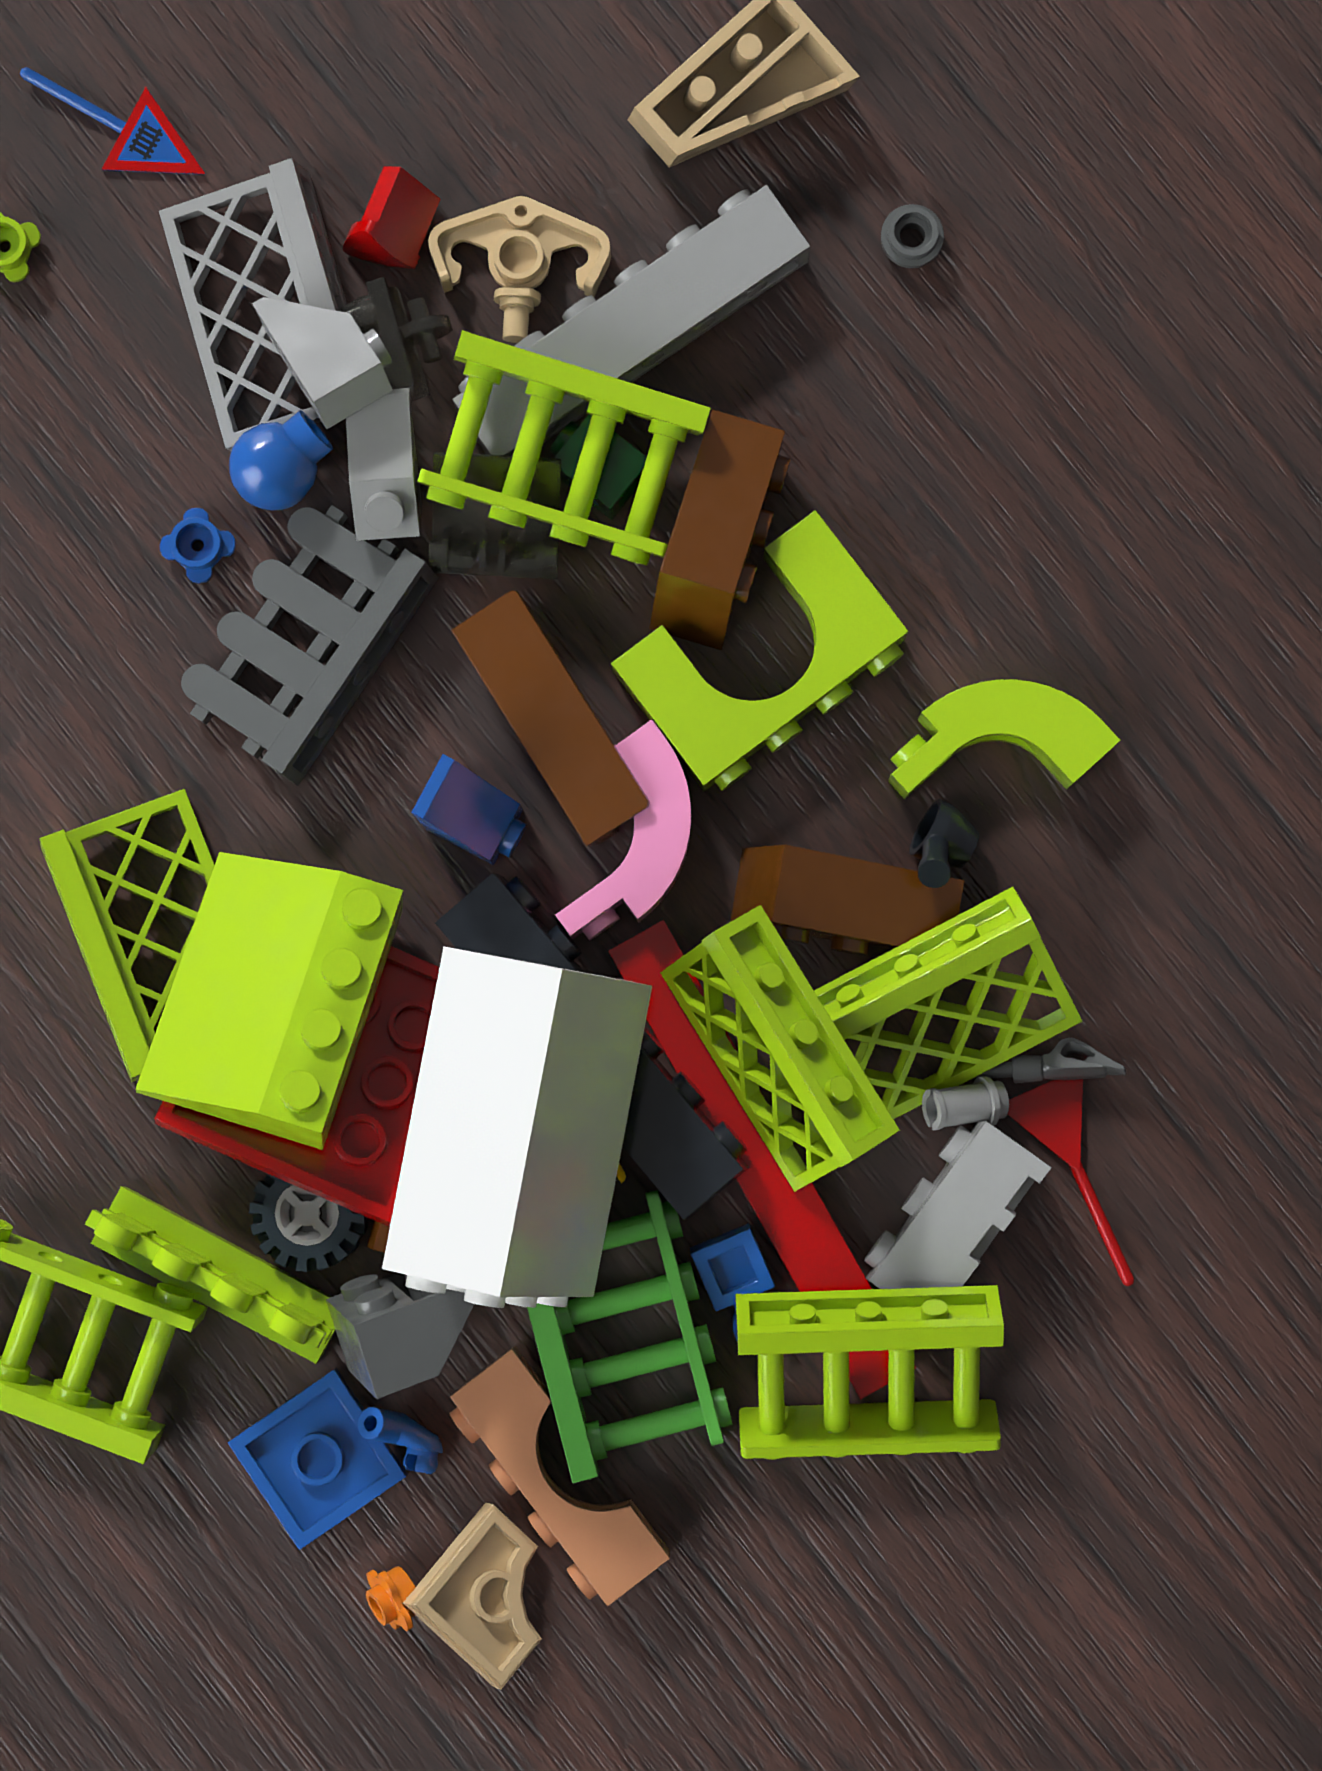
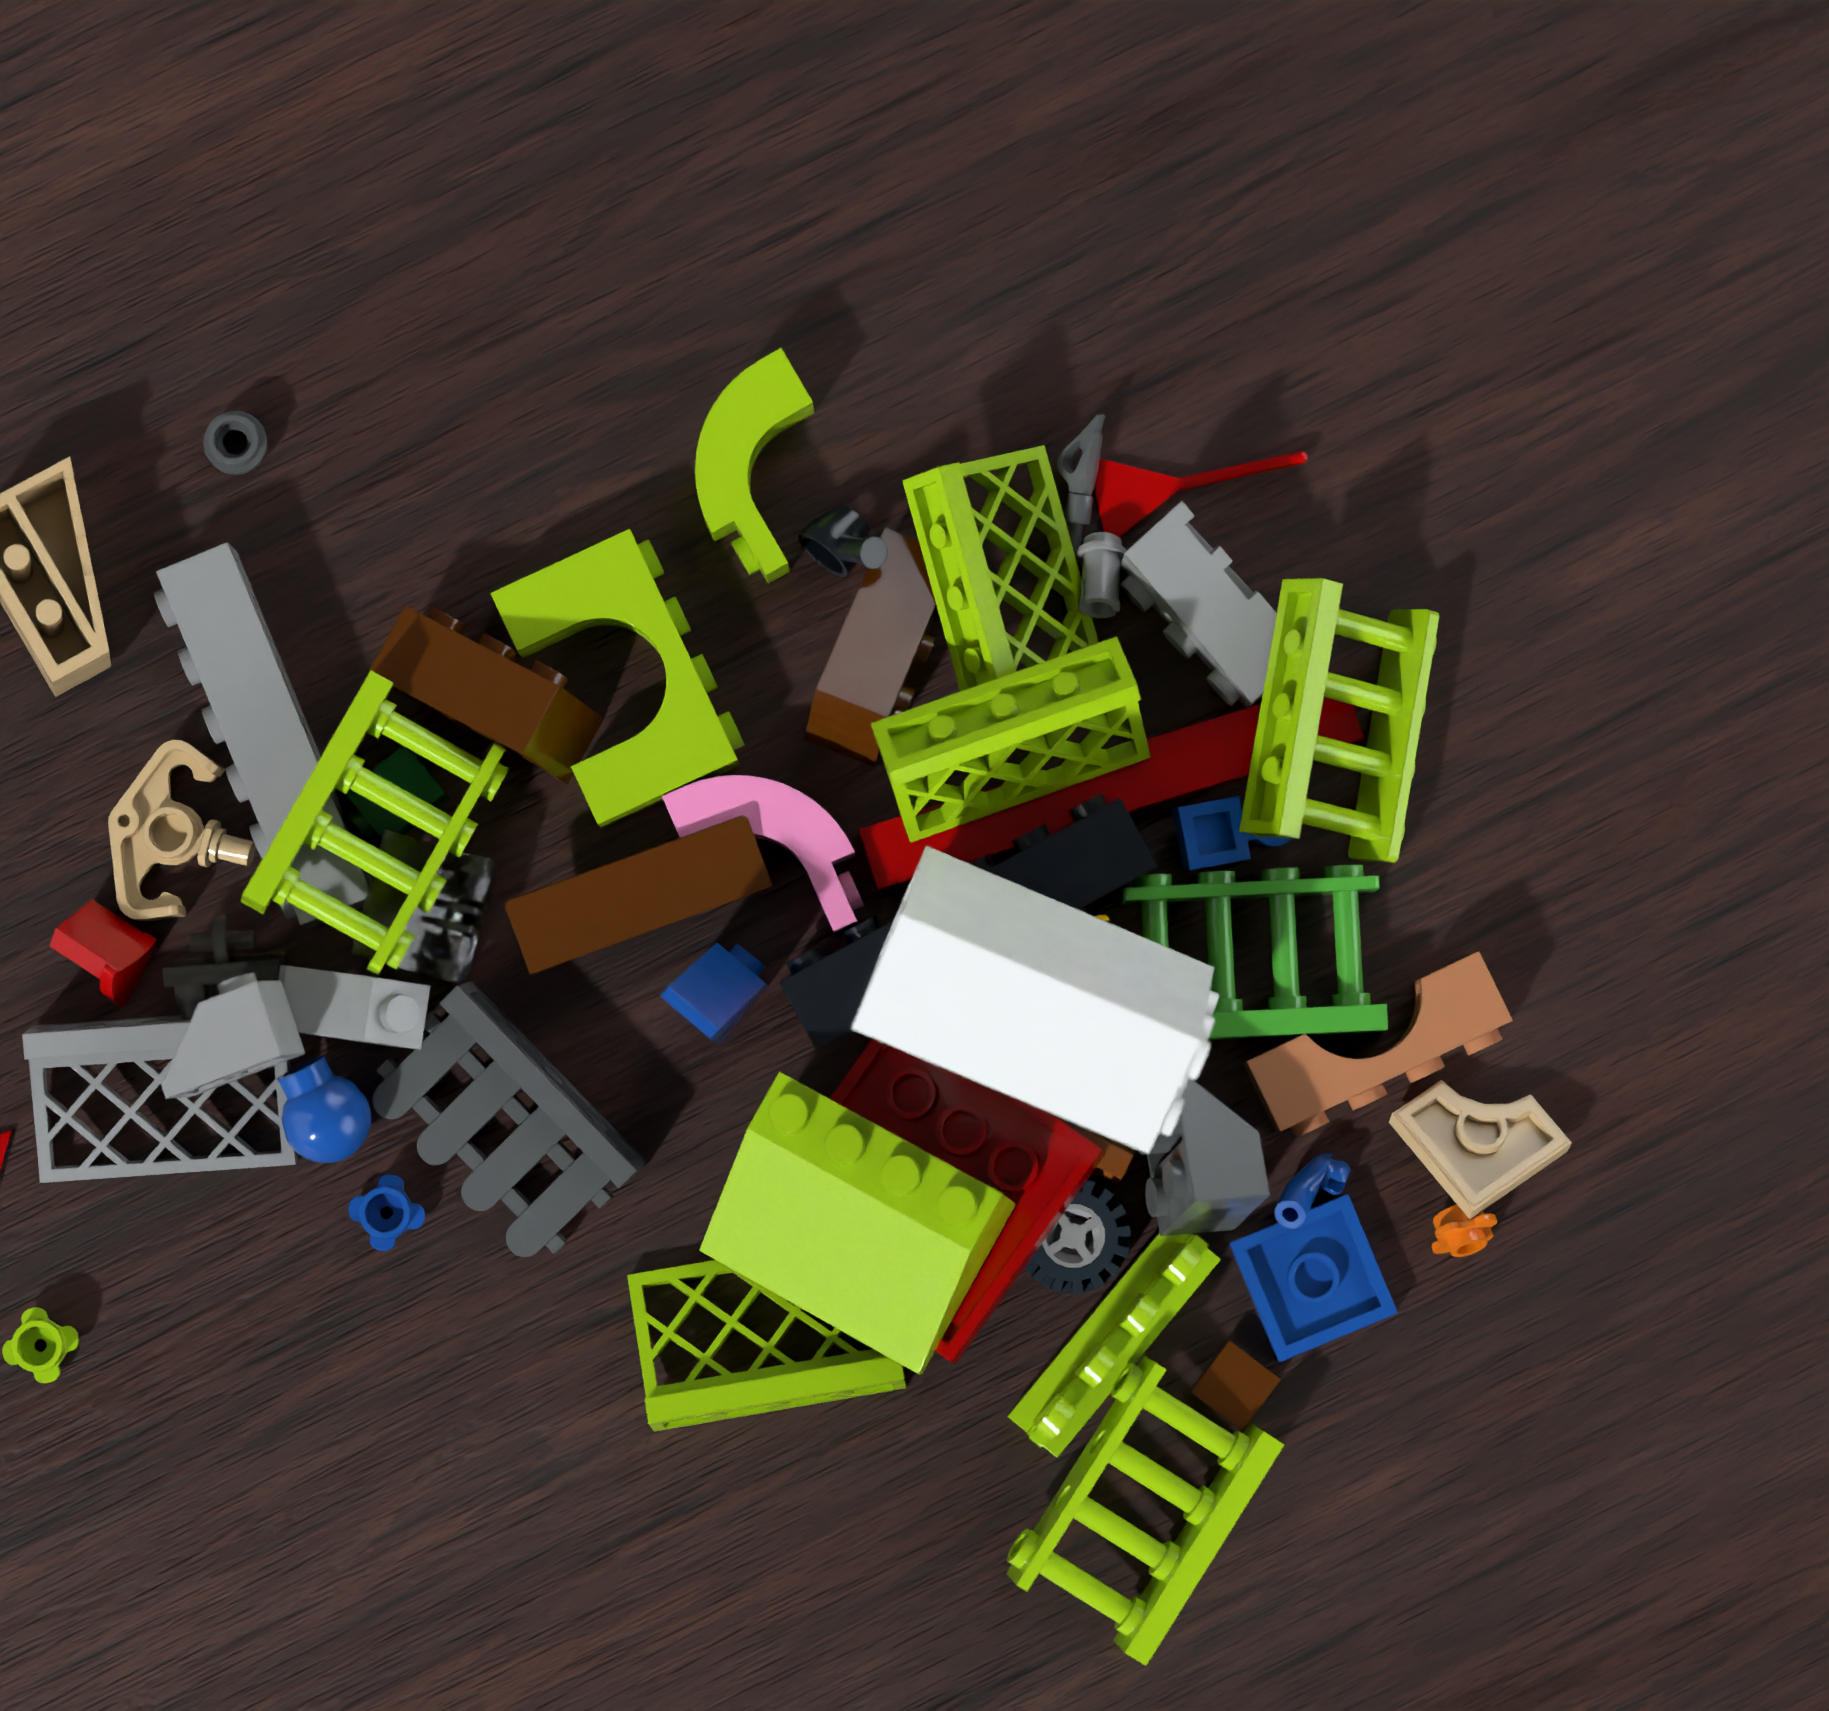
camera: 85 degrees left, 0 degrees up
(197, 1403) = (1235, 1385): none -> reddish brown tile

